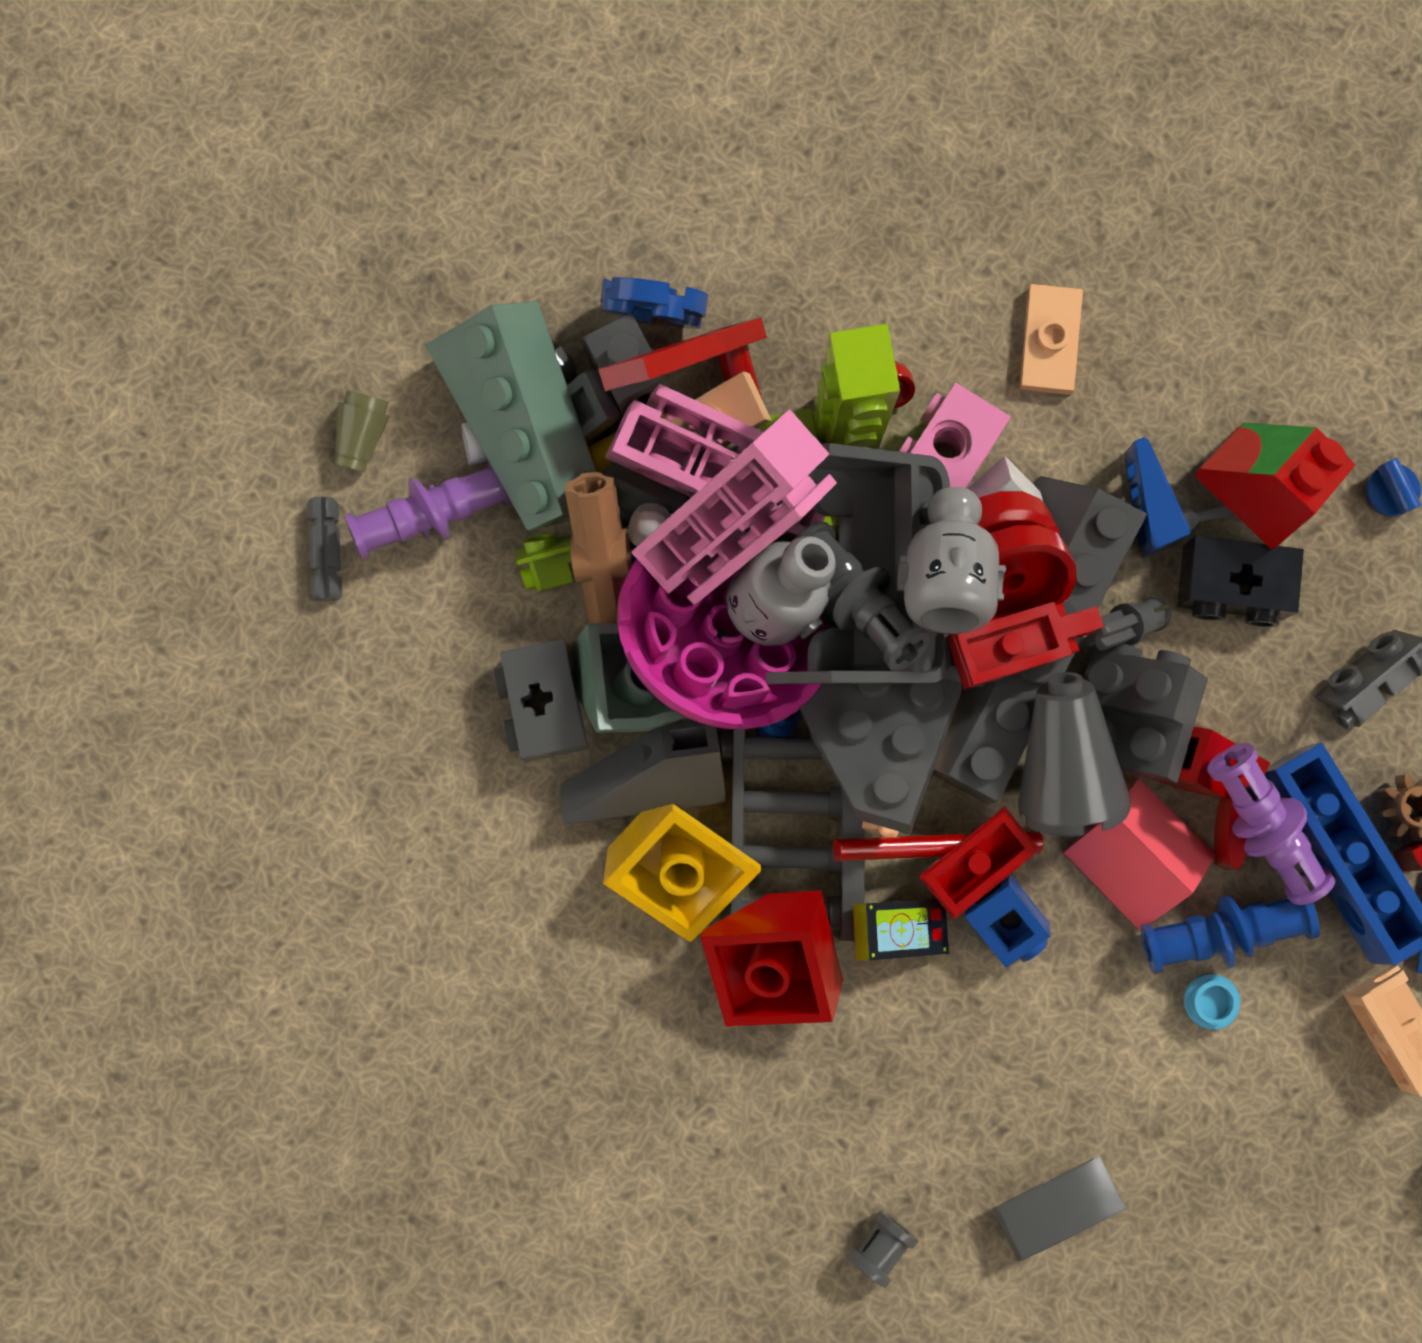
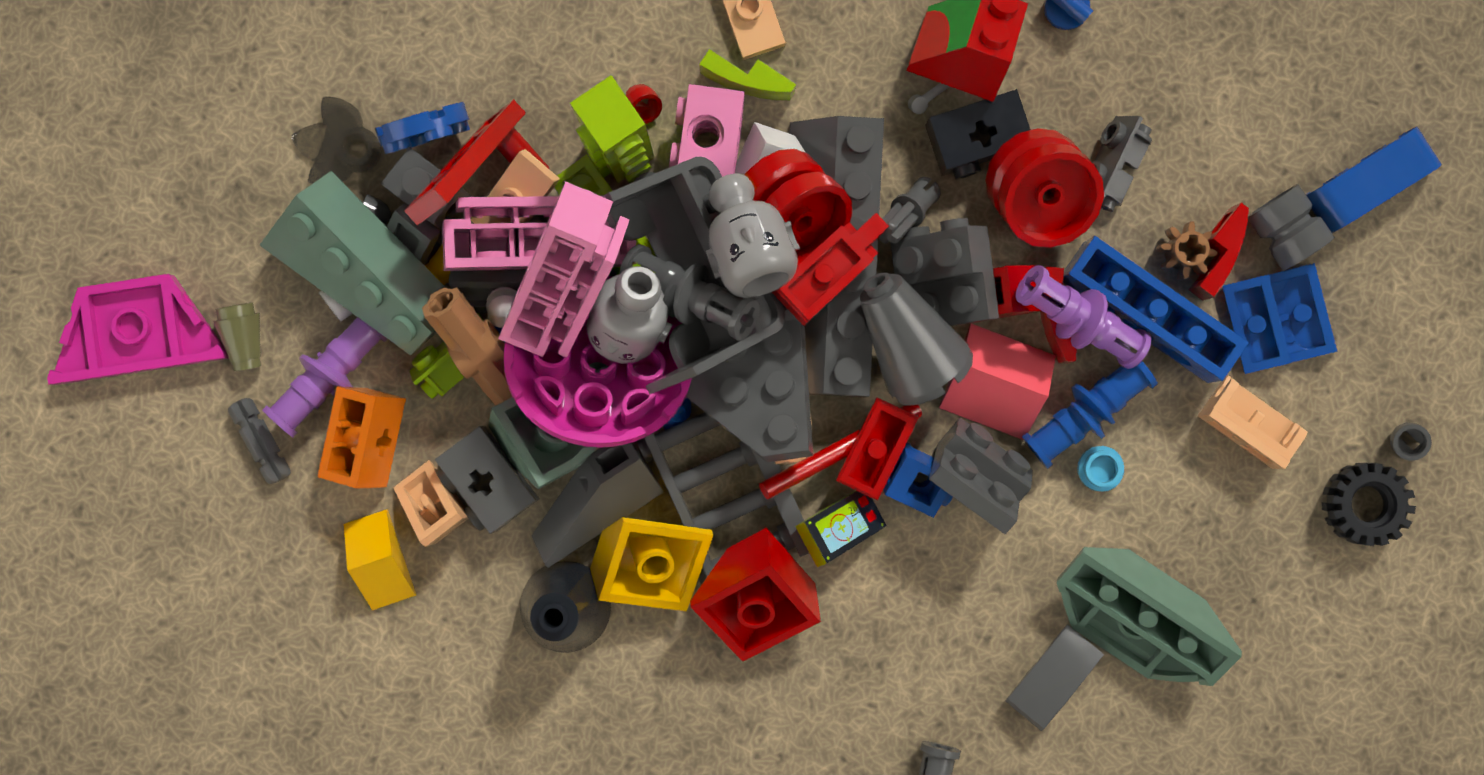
camera: 30 degrees left, 5 degrees up
(250, 374) = (133, 330): none -> dark pink wing
(386, 733) = (377, 560): none -> yellow slope
(433, 593) = (361, 437): none -> orange brick
(471, 699) = (430, 505): none -> light nougat slope
(551, 276) = (331, 142): none -> clear smoke plate
(581, 891) = (572, 591): none -> black cone
(1029, 419) = (759, 82): none -> lime slope
(1082, 943) = (981, 474): none -> dark grey plate
(1152, 494) = (885, 102): blue slope -> none
(1191, 1190) = (1145, 617): none -> sand green wedge
(1288, 667) = (1044, 187): none -> red wheel

